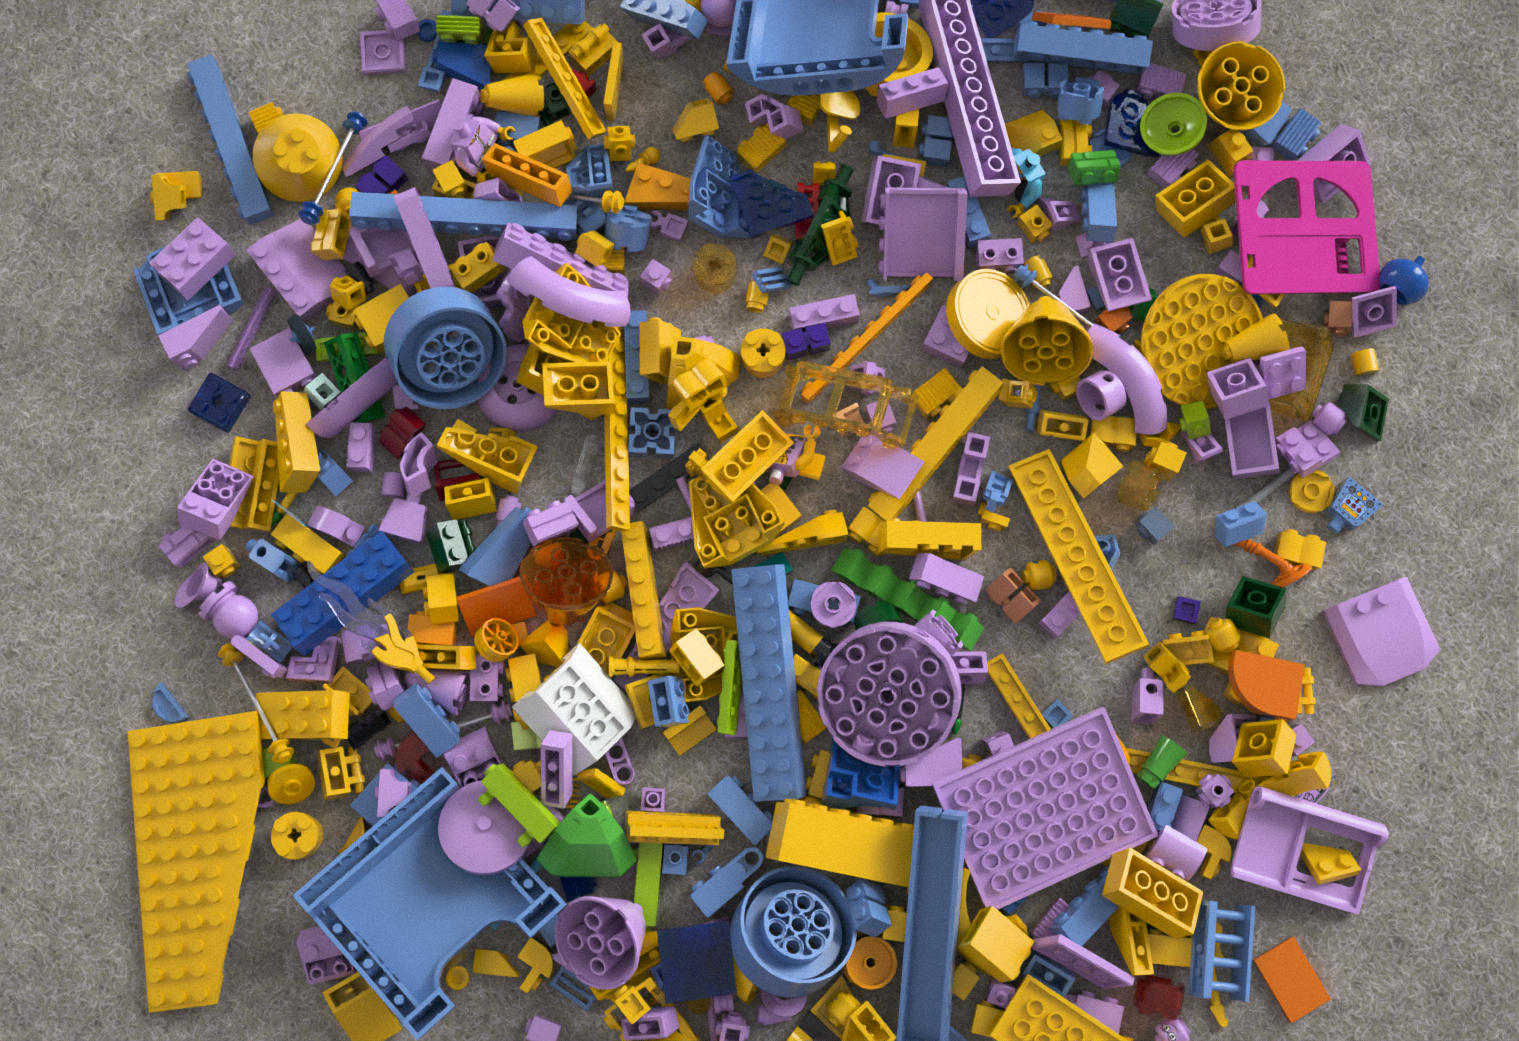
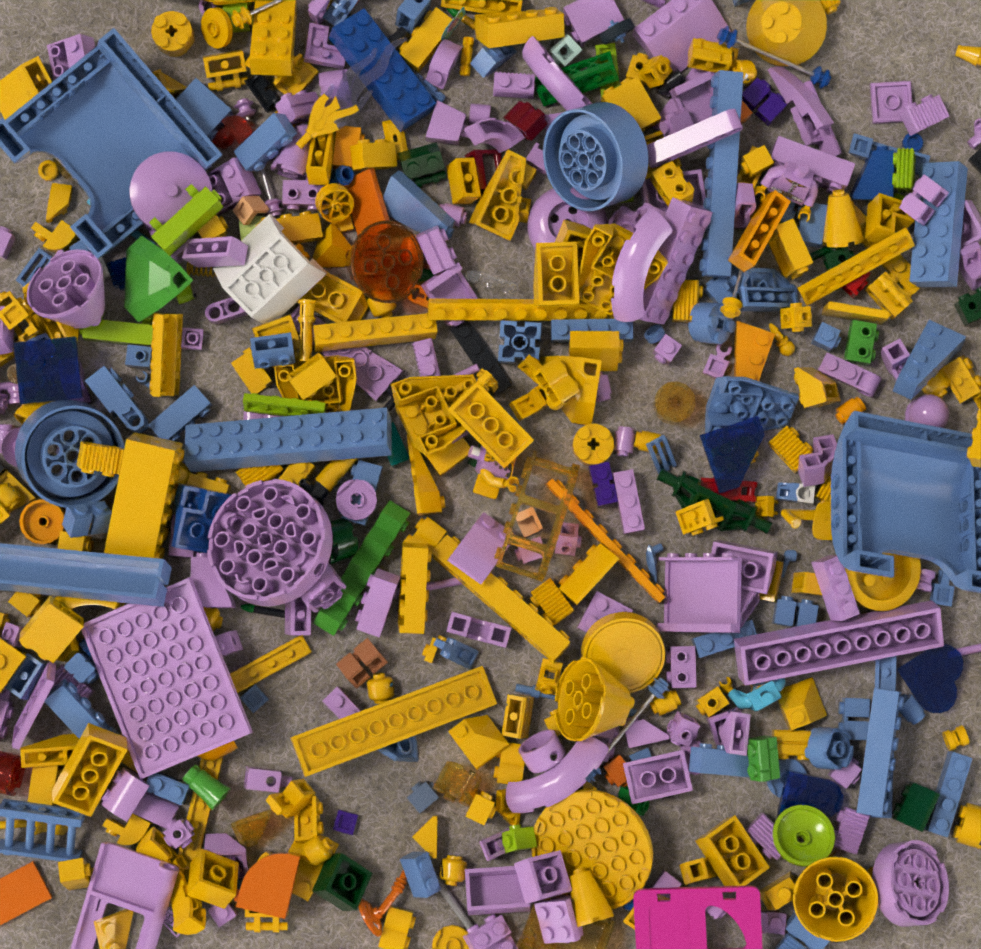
camera: 90 degrees right, 5 degrees up
(328, 502) = (466, 56): none -> yellow axle
(390, 792) = (204, 111): lavender brick -> none
(444, 418) = (535, 159): none -> lavender brick
(464, 633) = (342, 175): none -> blue cone
(503, 737) = (249, 207): none -> light nougat panel
(594, 247) = (690, 291): yellow brick -> none
(601, 783) = (206, 292): yellow tile -> none
(639, 113) = (826, 337): none -> medium blue brick
(639, 291) = (654, 333): none -> medium blue tile
(645, 78) = (860, 343): none -> bright green brick
(679, 89) = (850, 374): none -> lavender plate
(757, 319) = (624, 441): none -> lavender brick
(778, 248) = (694, 462): yellow slope -> none
(800, 892) = (99, 458): none -> yellow brick
(808, 141) = (795, 493): none -> leg
(904, 353) = (587, 573): none -> yellow slope
(1036, 908) = (82, 668): none -> medium blue brick
(1066, 252) = (682, 729): none -> lavender brick
(1069, 19) = (910, 744): orange tile -> none
(1070, 195) = (735, 733): none -> lavender slope
(1196, 518) = (427, 836): none -> yellow slope
(1231, 491) = (452, 870): none -> yellow head
(1267, 906) = (75, 873): none -> yellow brick

